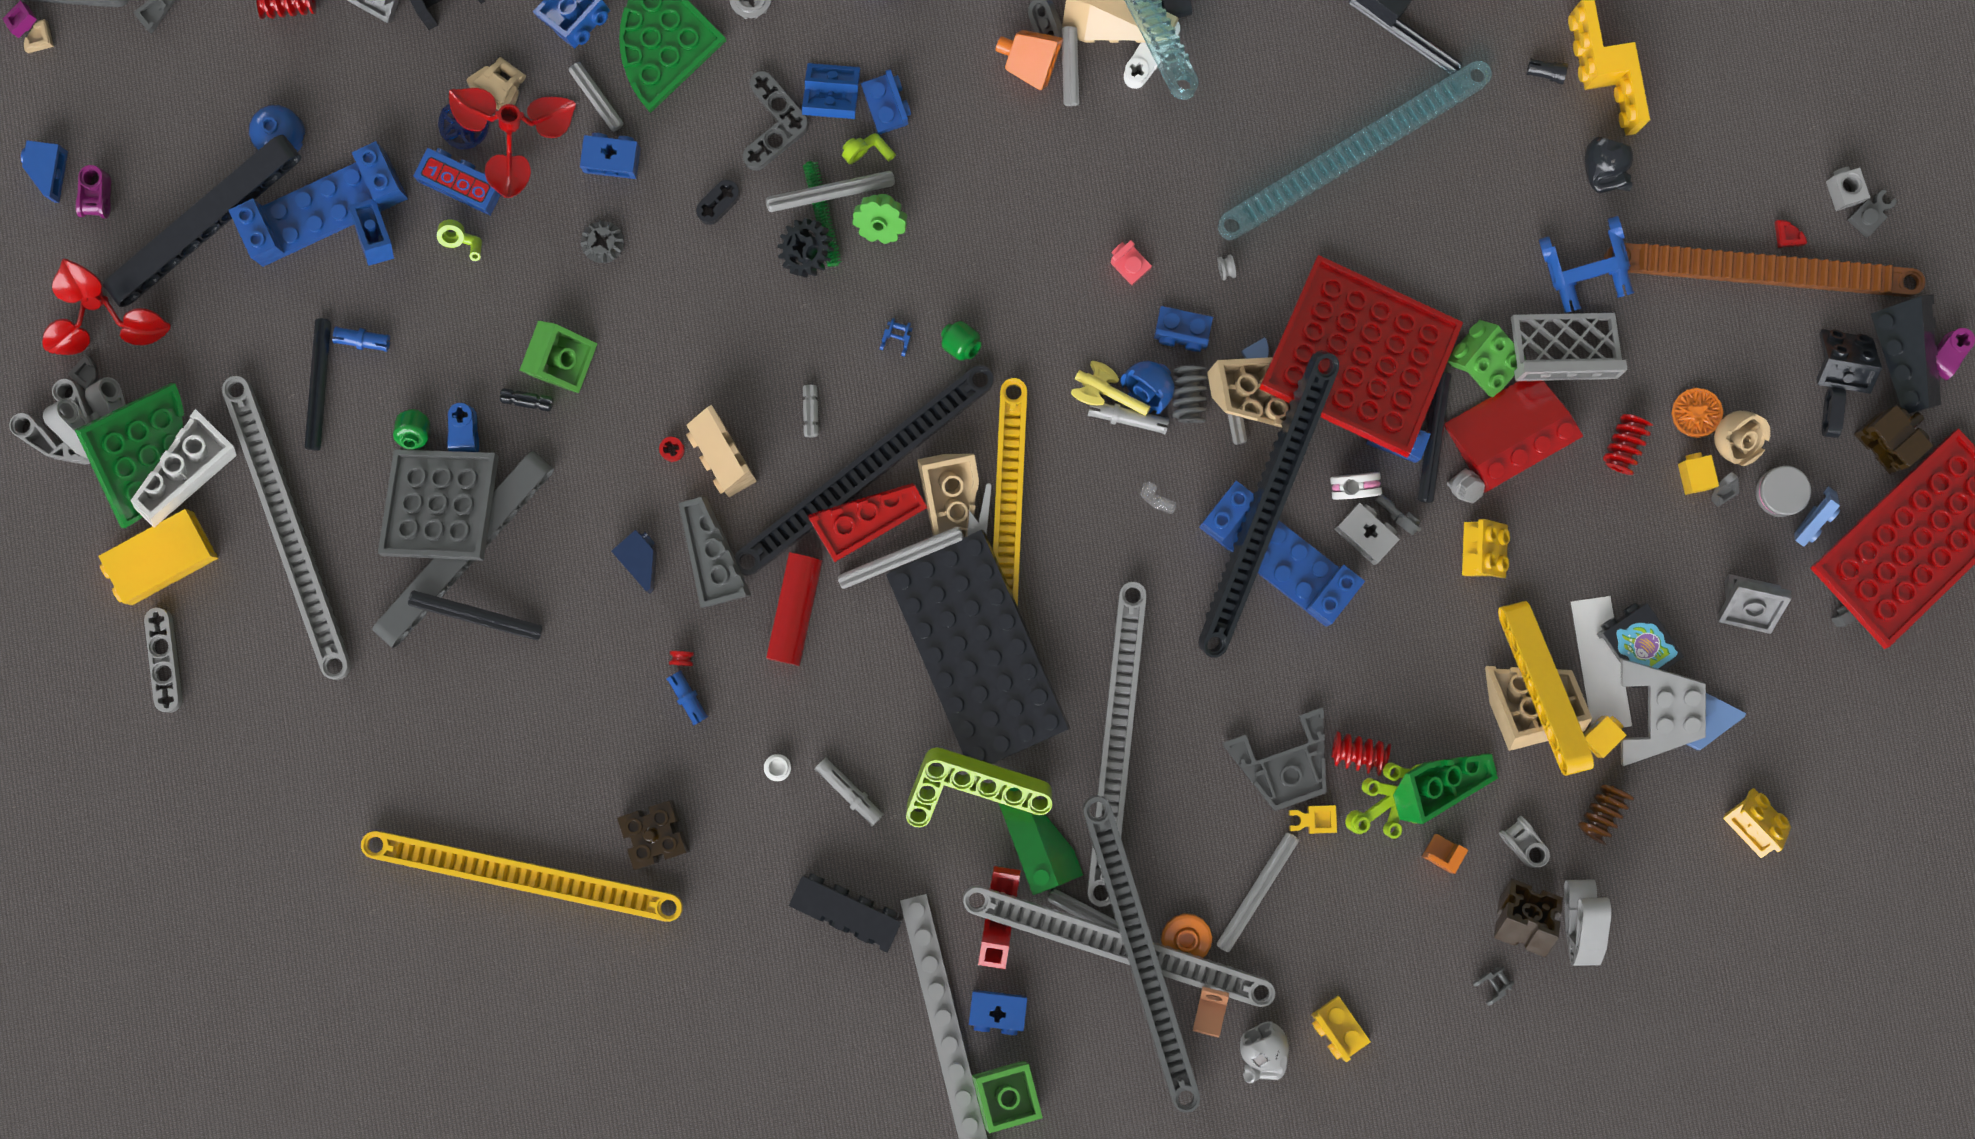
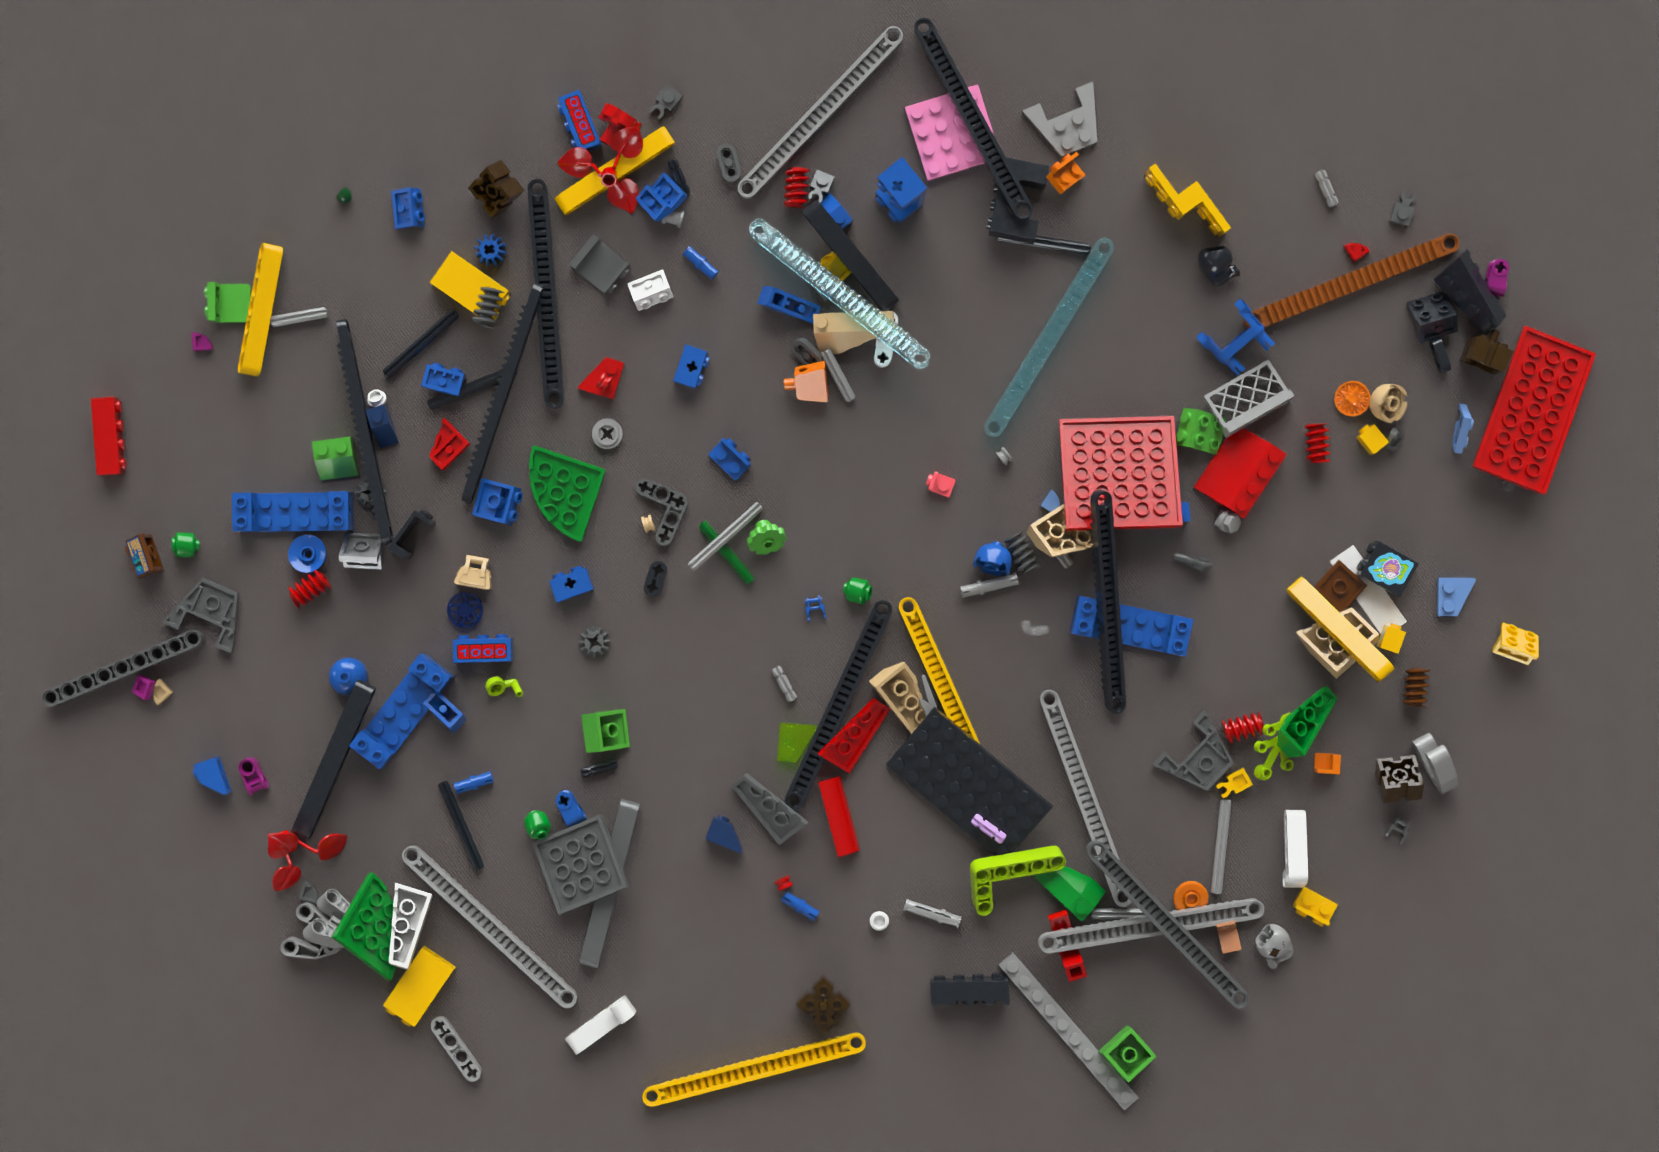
camera: 20 degrees left, 5 degrees up
(360, 720) = (601, 1024): none -> white beam
(474, 615) = (640, 922): black axle -> none
(475, 106) = (470, 597): red plant -> none
(596, 96) = (541, 549): light grey axle -> none
(675, 442) = (708, 759): red bush -> none
(719, 452) = (741, 741): tan wedge -> none
(743, 130) = (648, 523): none -> tan bush
(785, 487) = (793, 740): none -> clear neon green wing
(807, 249) = (720, 578): black gear -> none
(831, 91) = (691, 469): blue slope -> none
(856, 148) = (726, 499): lime plate -> none
(900, 557) = (890, 749): light grey axle -> none
(974, 716) = (988, 828): none -> lavender axle
(986, 1001) = (1084, 1002): blue brick -> none
(1099, 384) = (959, 574): light yellow piece -> none
(1183, 328) = (996, 509): blue bracket -> none
(1351, 943) = (1296, 859): none -> white beam
(1356, 485) = (1157, 558): white head -> none
(1372, 547) = (1168, 585): light grey brick -> none
(1434, 444) = (1190, 496): black axle -> none
(1485, 549) = (1259, 556): yellow bracket -> none
(1524, 842) = (1372, 729): light grey piece -> none
(1553, 71) = (1153, 219): black pin -> none
(1571, 638) = (1340, 586): none -> reddish brown tile
(1674, 711) = (1428, 600): light grey wing -> none
(1753, 604) = (1446, 505): flat silver bracket -> none
(1783, 491) = (1431, 422): light grey head -> none
(1788, 140) = (1326, 188): none -> light grey axle
(1842, 198) = (1388, 202): light grey brick -> none

